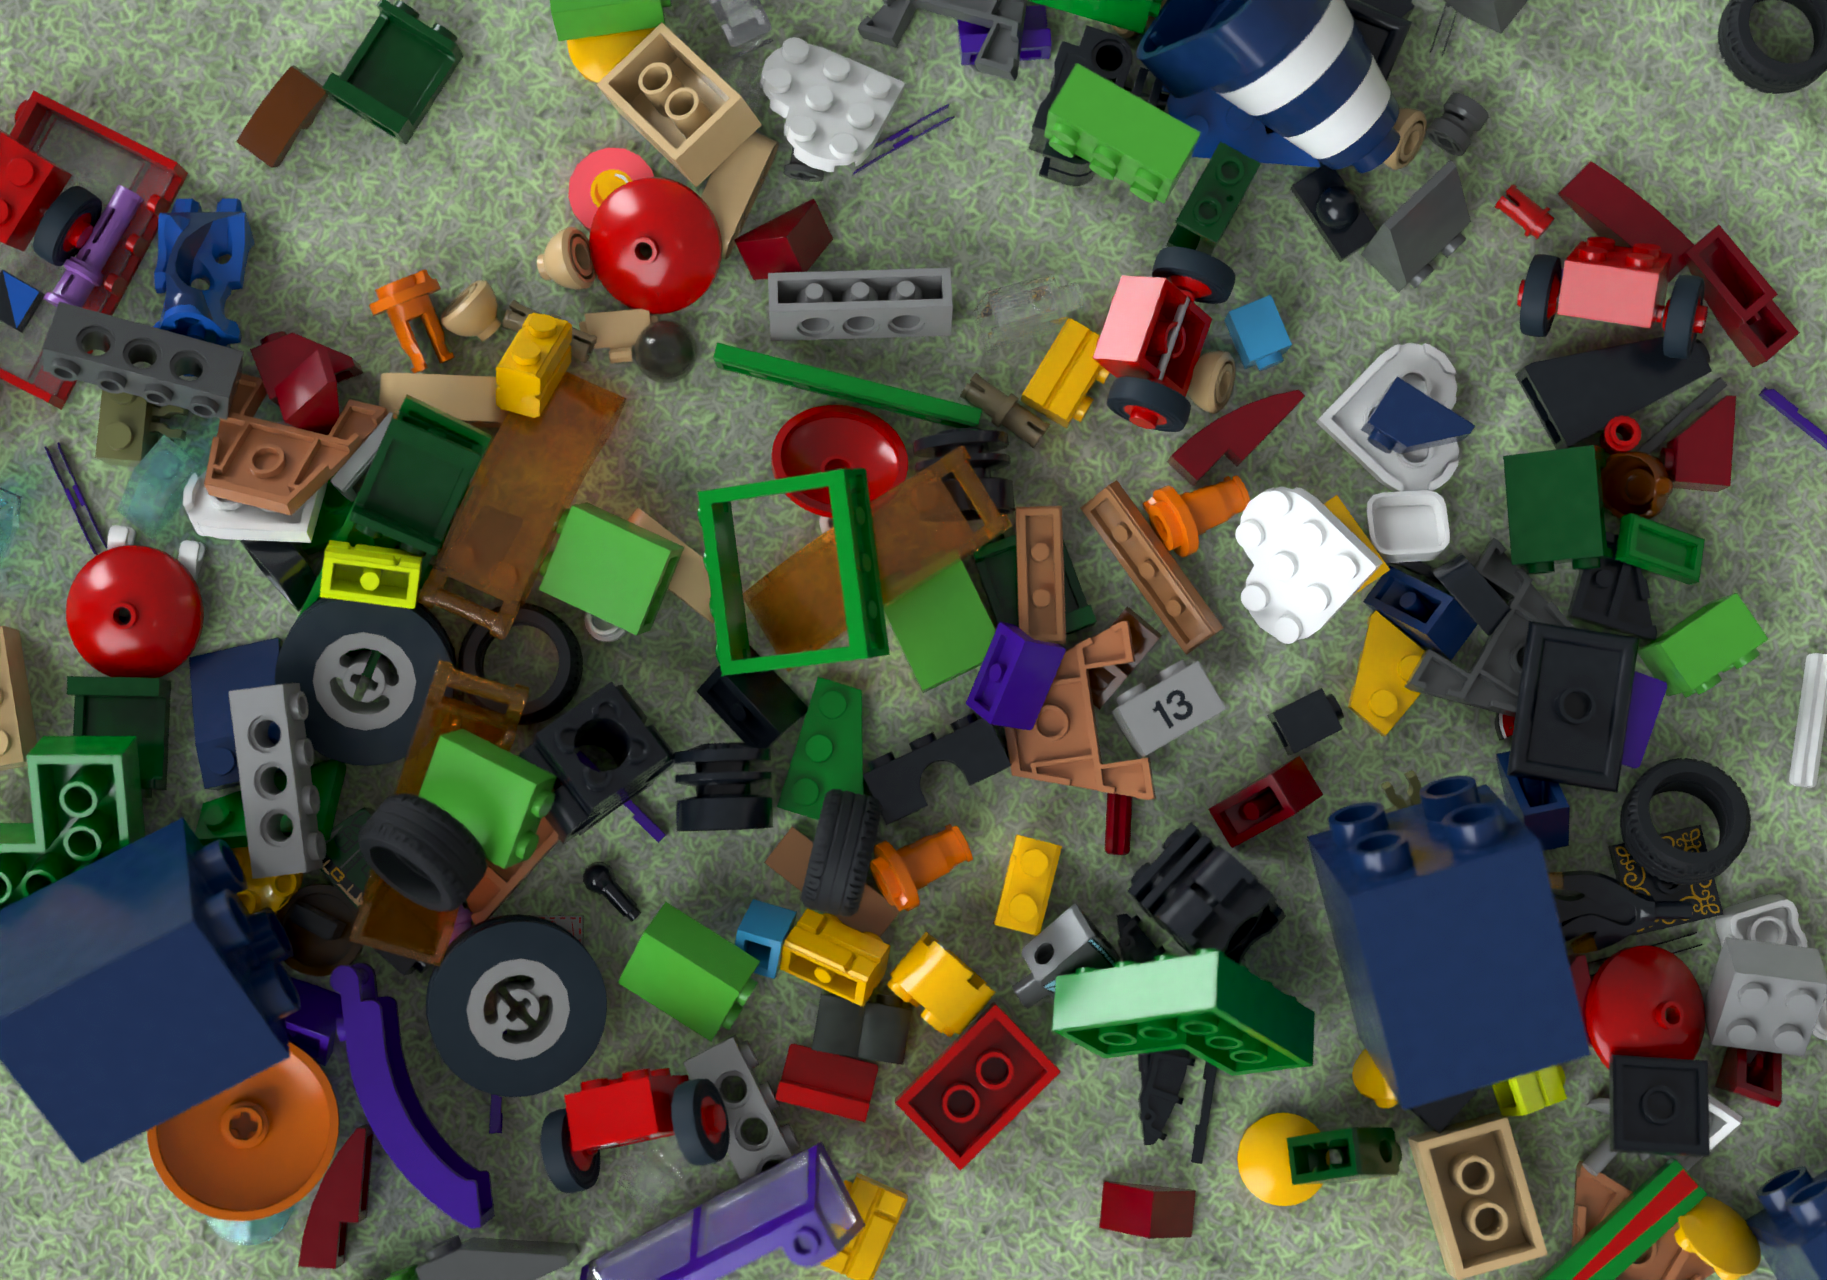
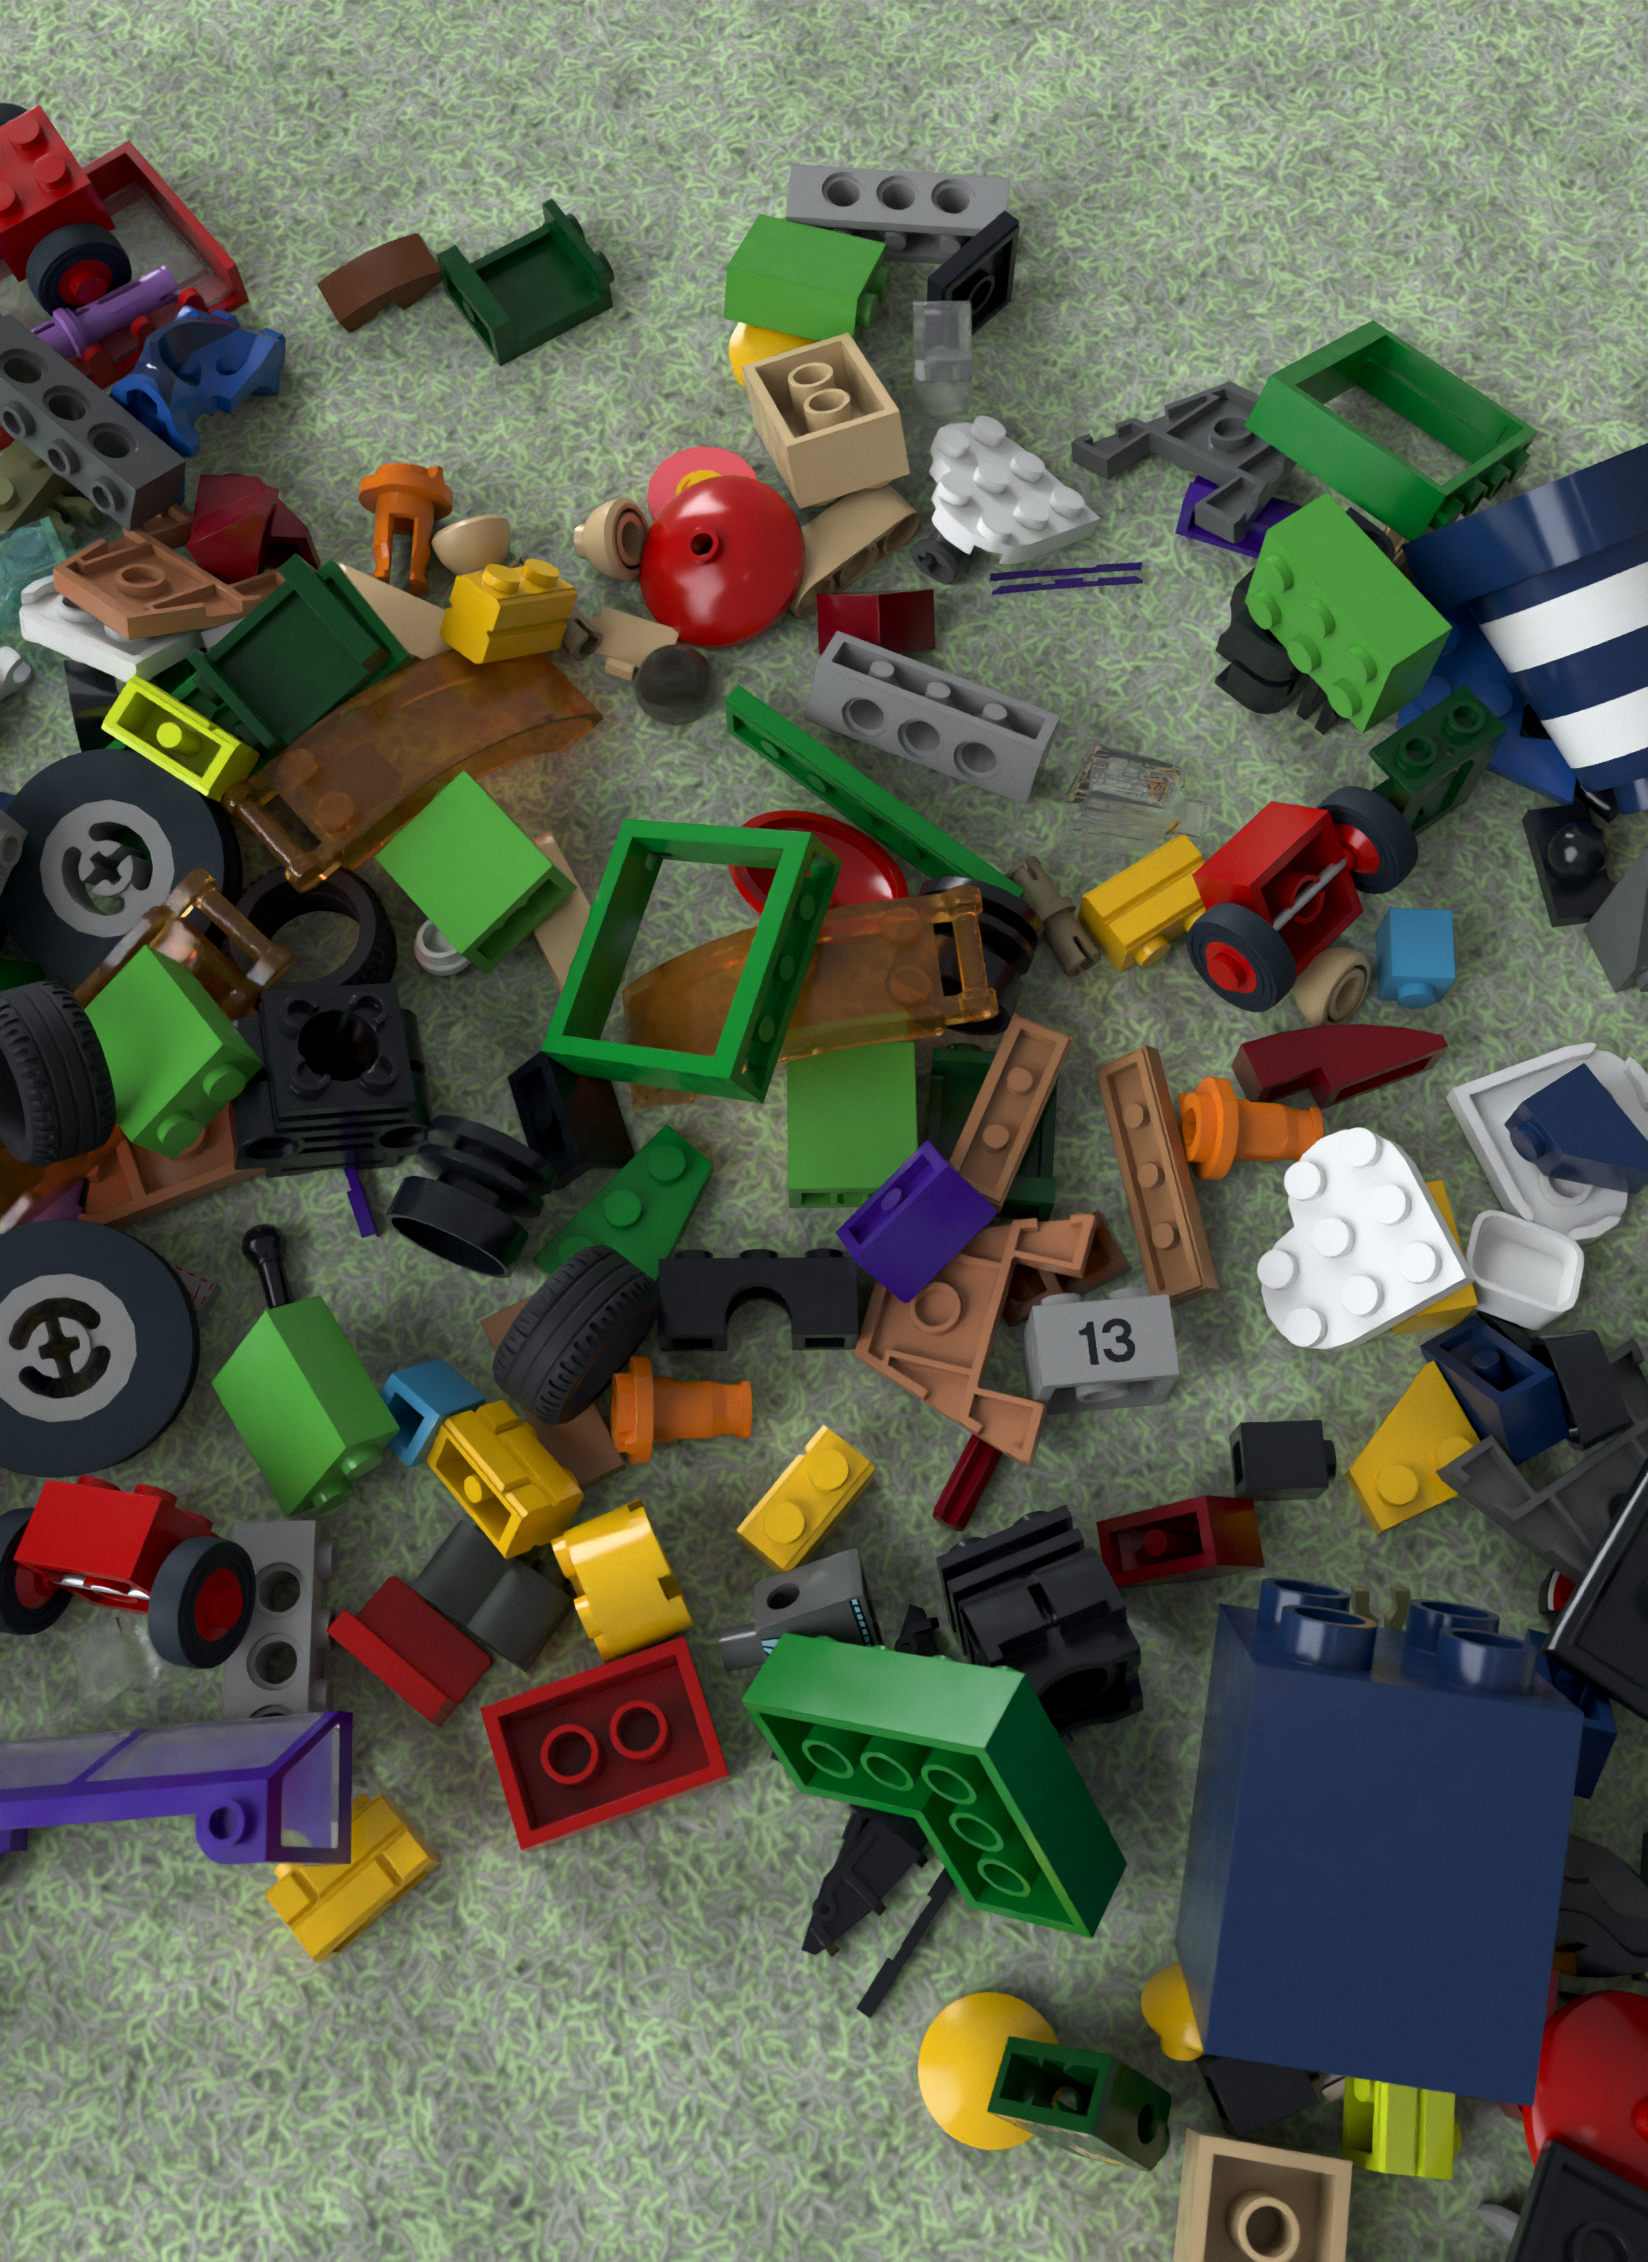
camera: 25 degrees right, 15 degrees down
(1147, 1210) = (763, 2050): dark red slope -> none

